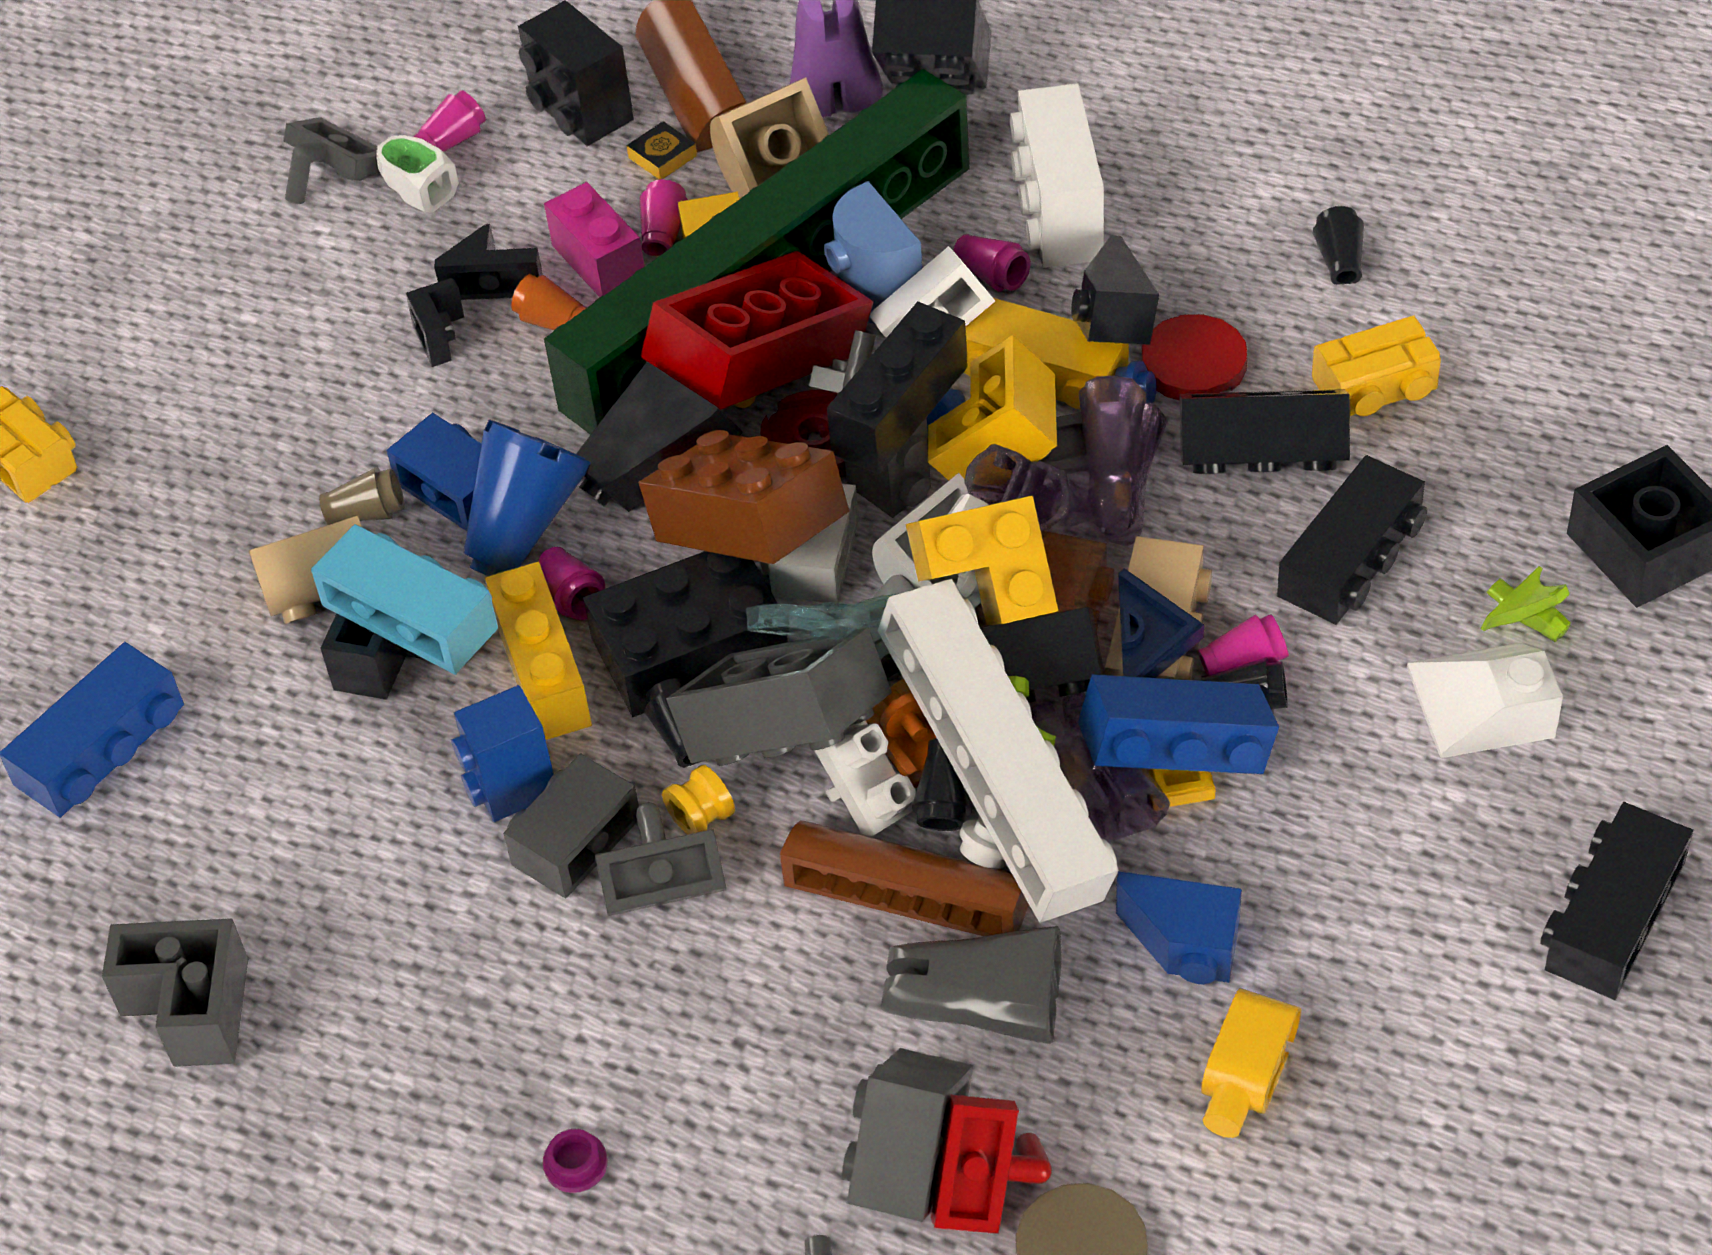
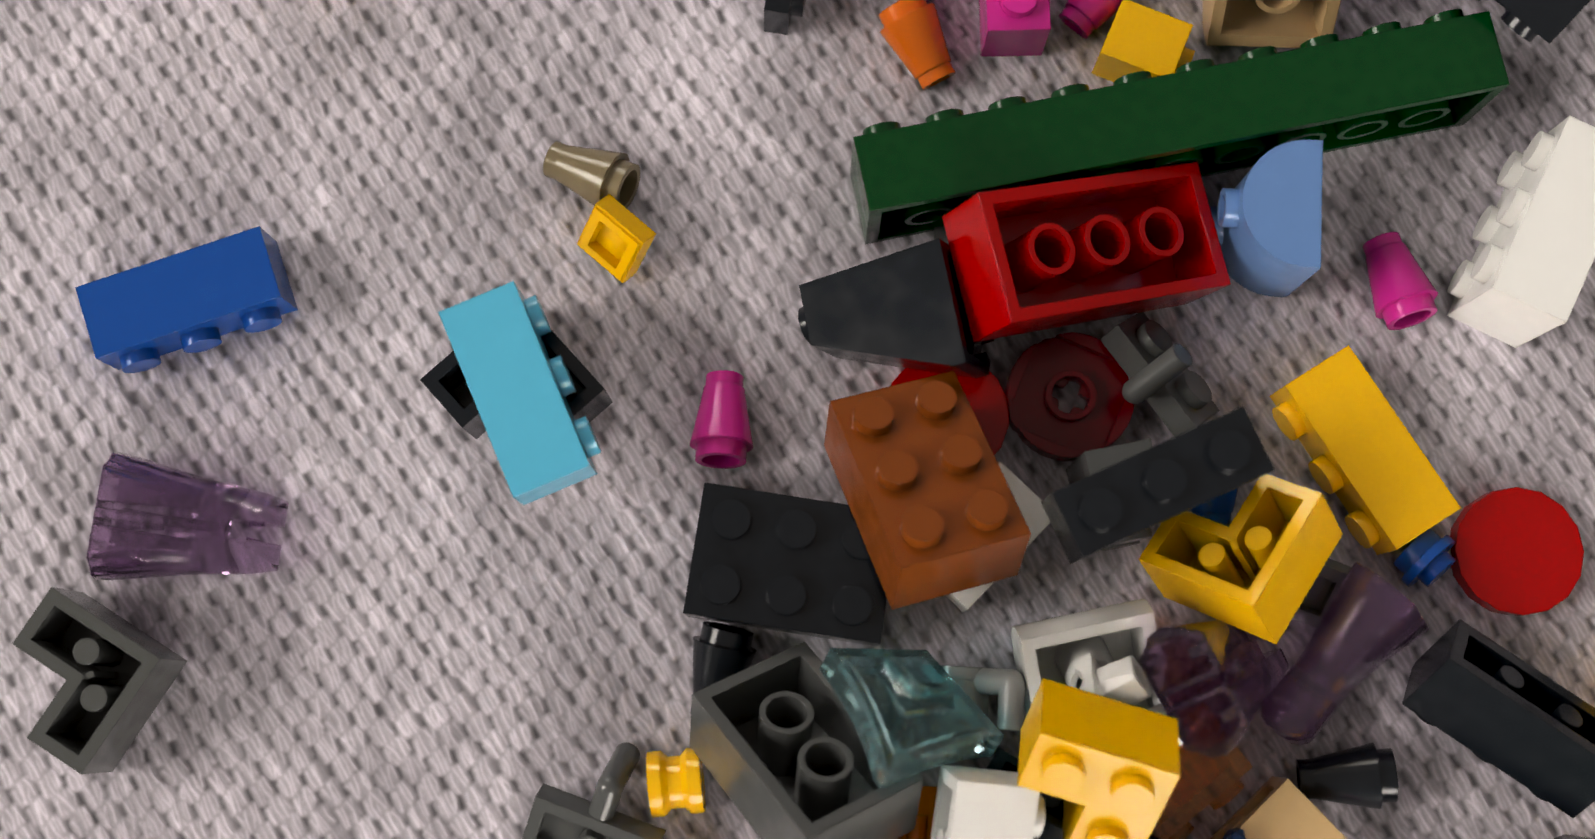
camera: 30 degrees right, 30 degrees up
(182, 866) = (176, 523): none -> clear purple piece
(286, 569) = (488, 236): tan brick -> none
(410, 520) = (616, 238): none -> yellow tile
(438, 466) = (693, 201): blue brick -> none
(503, 752) = (519, 619): blue brick -> none
(516, 496) = (729, 295): blue cone -> none
(539, 649) = (636, 495): yellow brick -> none
(569, 823) = (544, 726): dark grey brick -> none
(940, 284) = (1285, 332): white brick -> none
(1115, 297) = (1480, 461): black slope -> none
(1193, 521) = (1350, 776): none -> black cone

